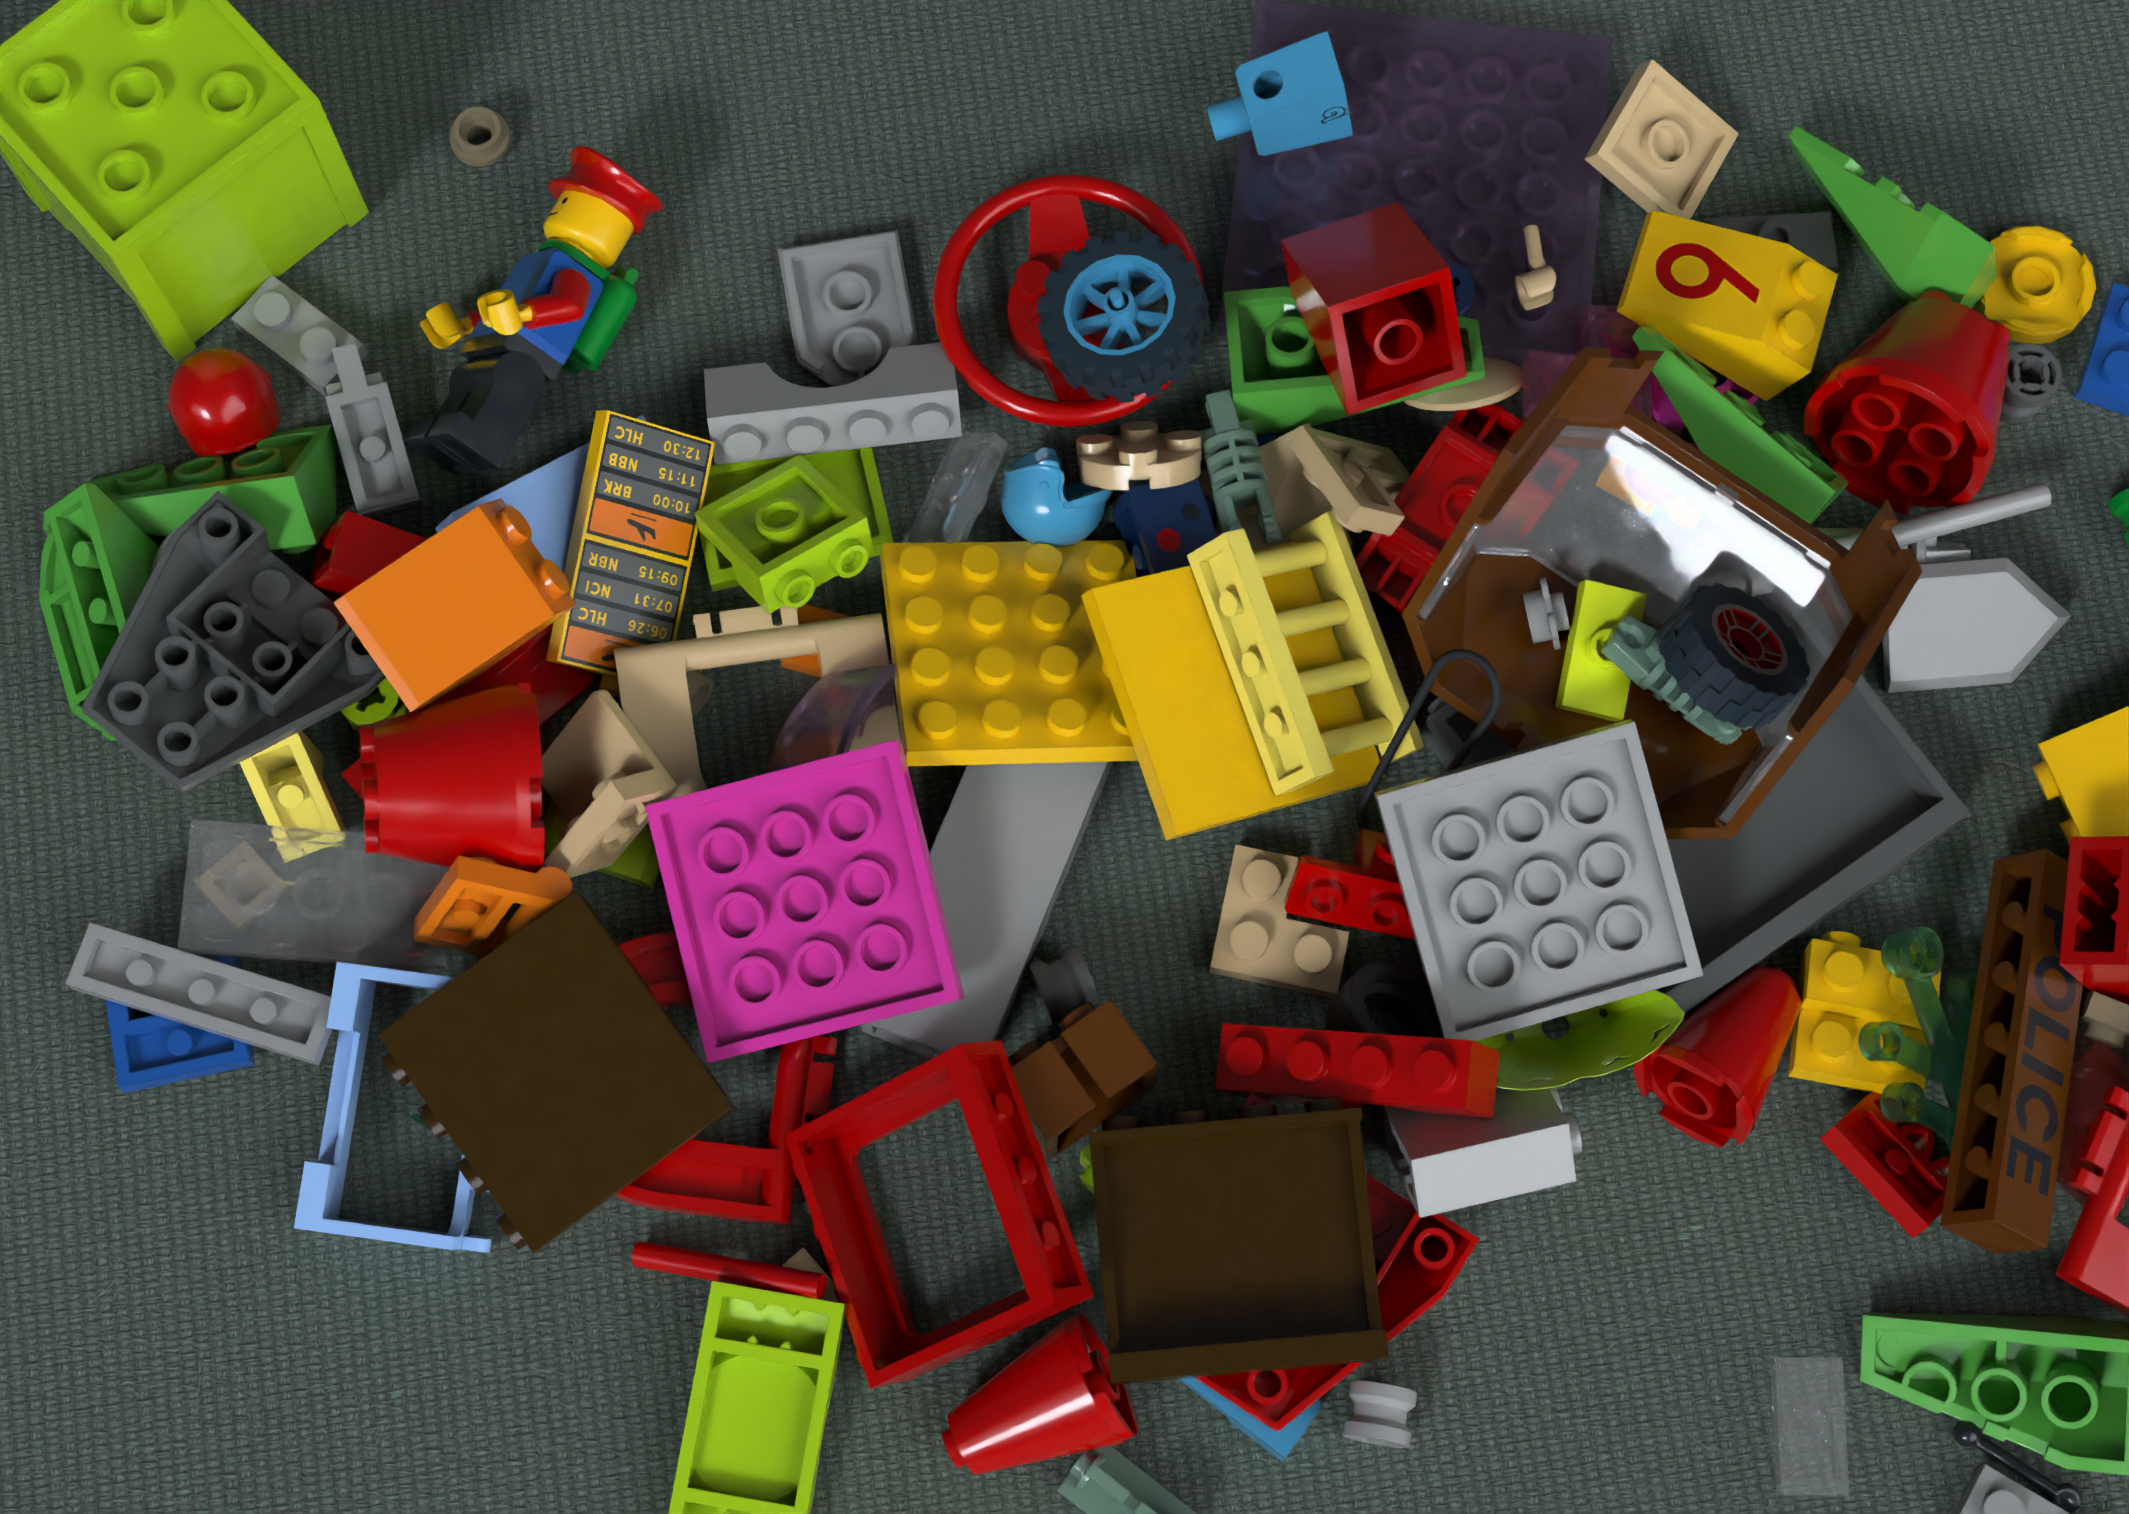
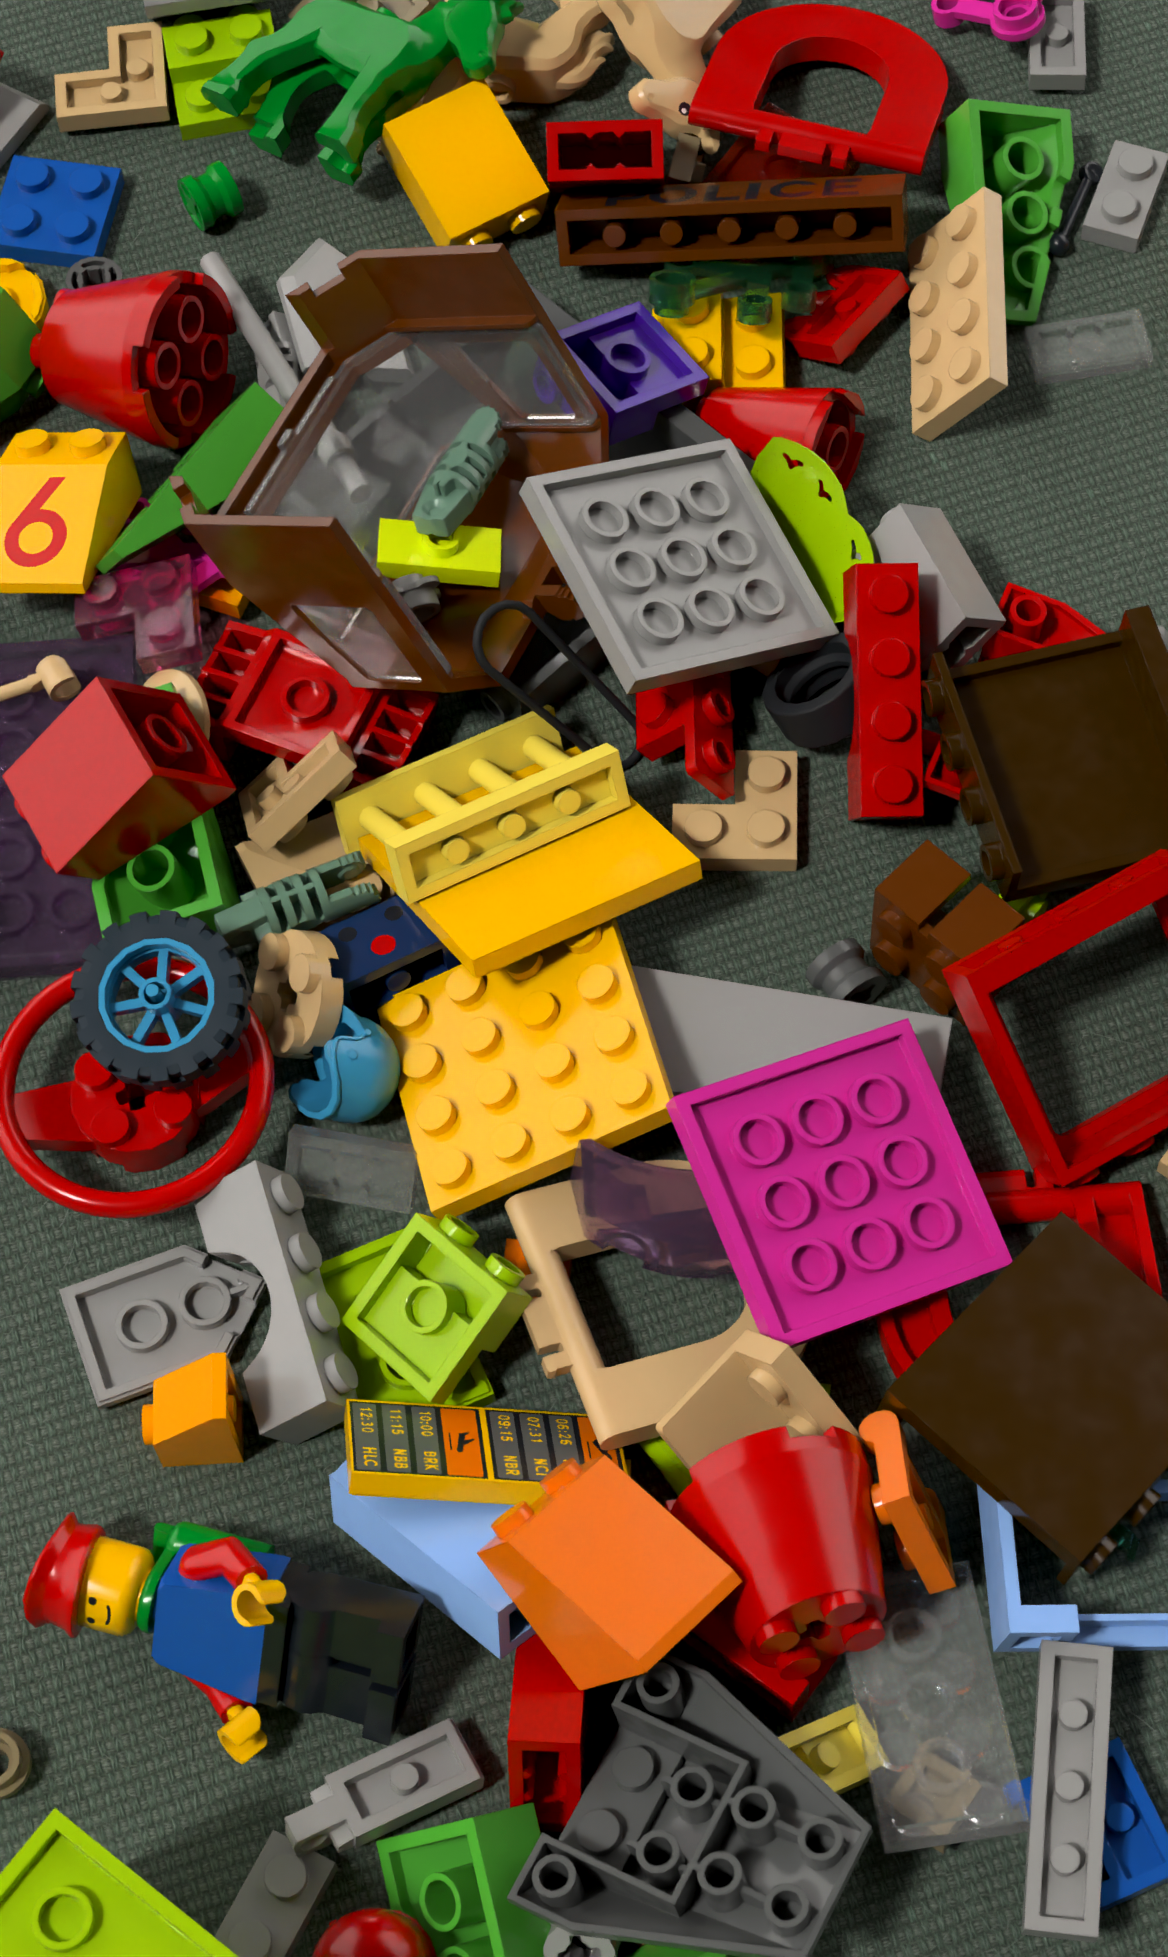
camera: 95 degrees left, 10 degrees down
(736, 321) = (196, 1415): none -> light orange slope
(1733, 656) = (440, 423): black wheel -> none
(1814, 879) = (633, 367): none -> dark purple plate
(1860, 1275) = (957, 315): none -> tan plate

